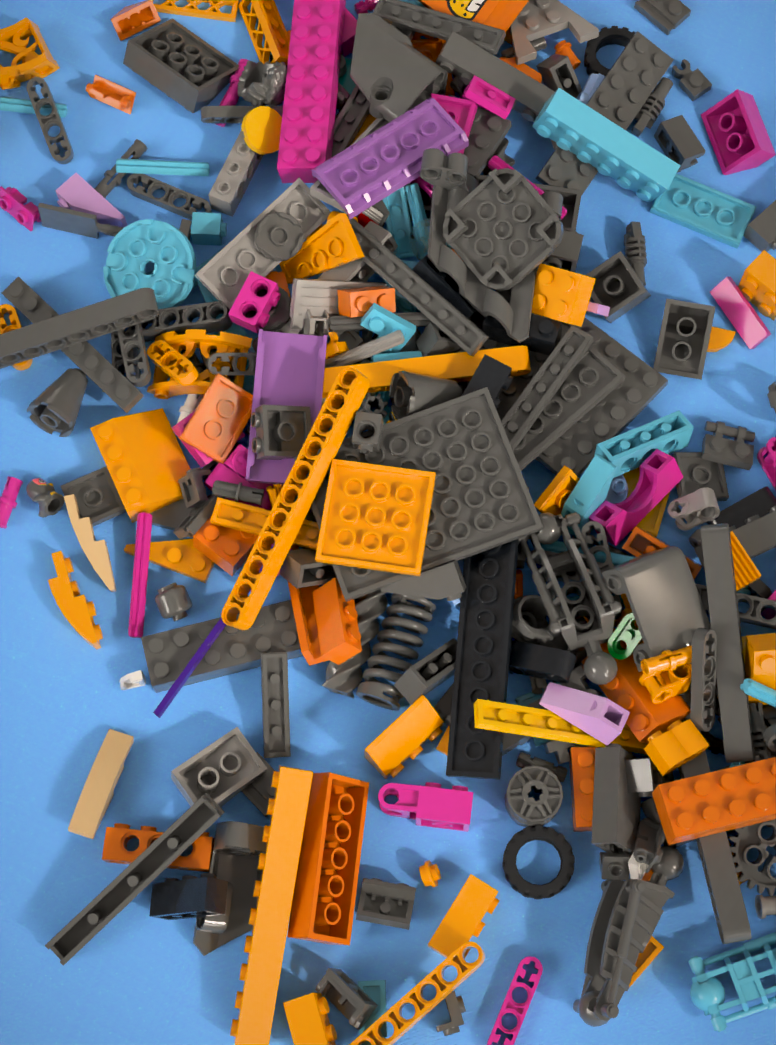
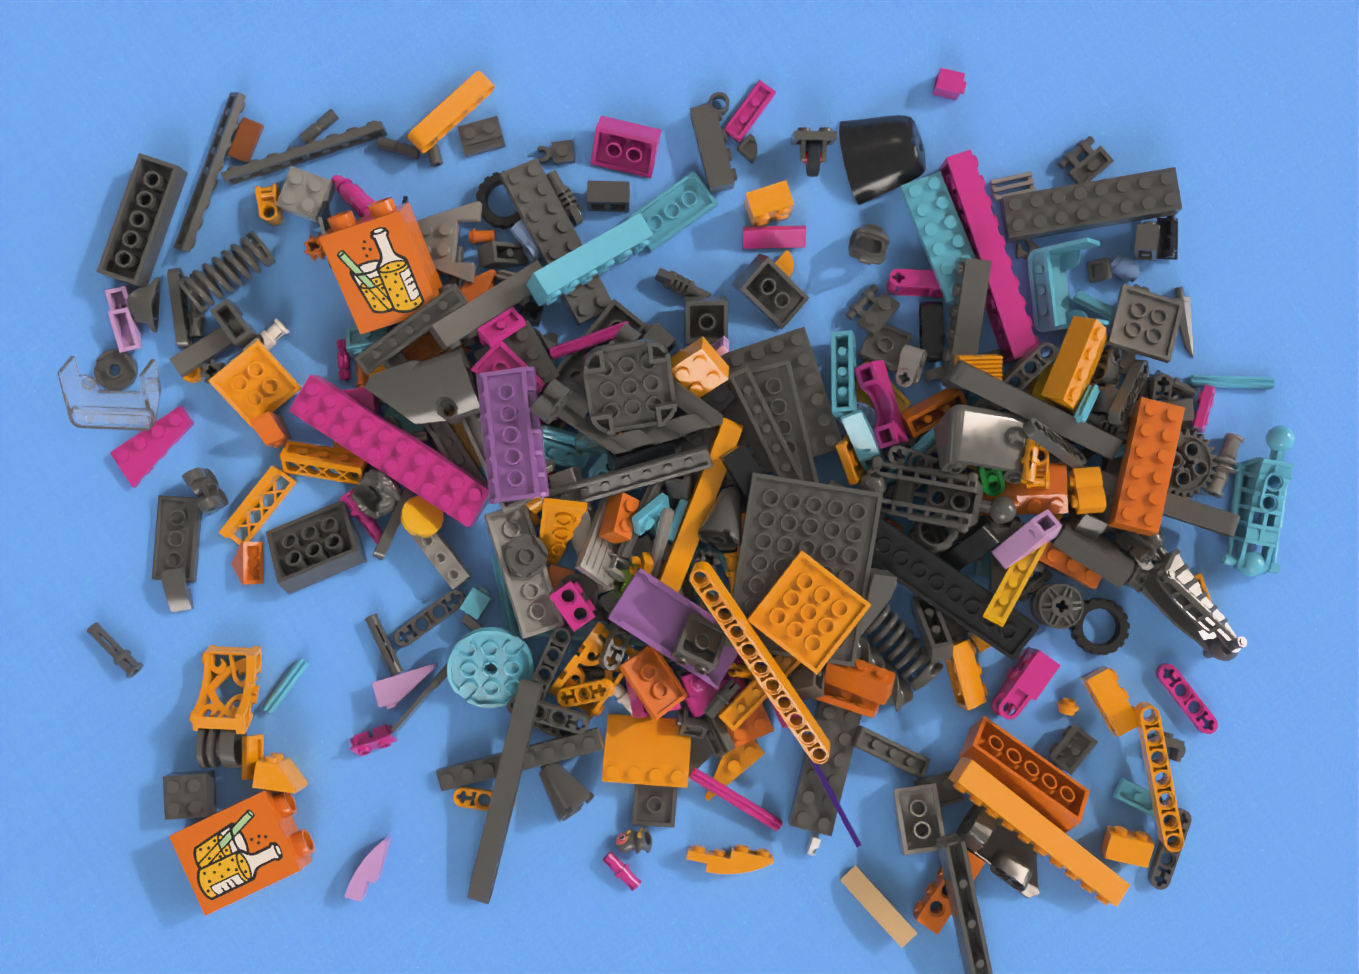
camera: 60 degrees left, 15 degrees up
(50, 120) = (309, 675): dark grey beam -> none
(95, 550) = (700, 825): tan slope -> none
(111, 94) = (311, 616): orange hinge -> none
(162, 167) = (402, 610): medium azure axle -> none
(173, 601) = (770, 785): dark grey head -> none
(188, 897) = (1002, 888): black brick -> none
(346, 997) = (1122, 809): dark grey hinge -> none
(363, 422) = (736, 574): dark grey brick -> none
(521, 135) = (532, 313): none -> black tile

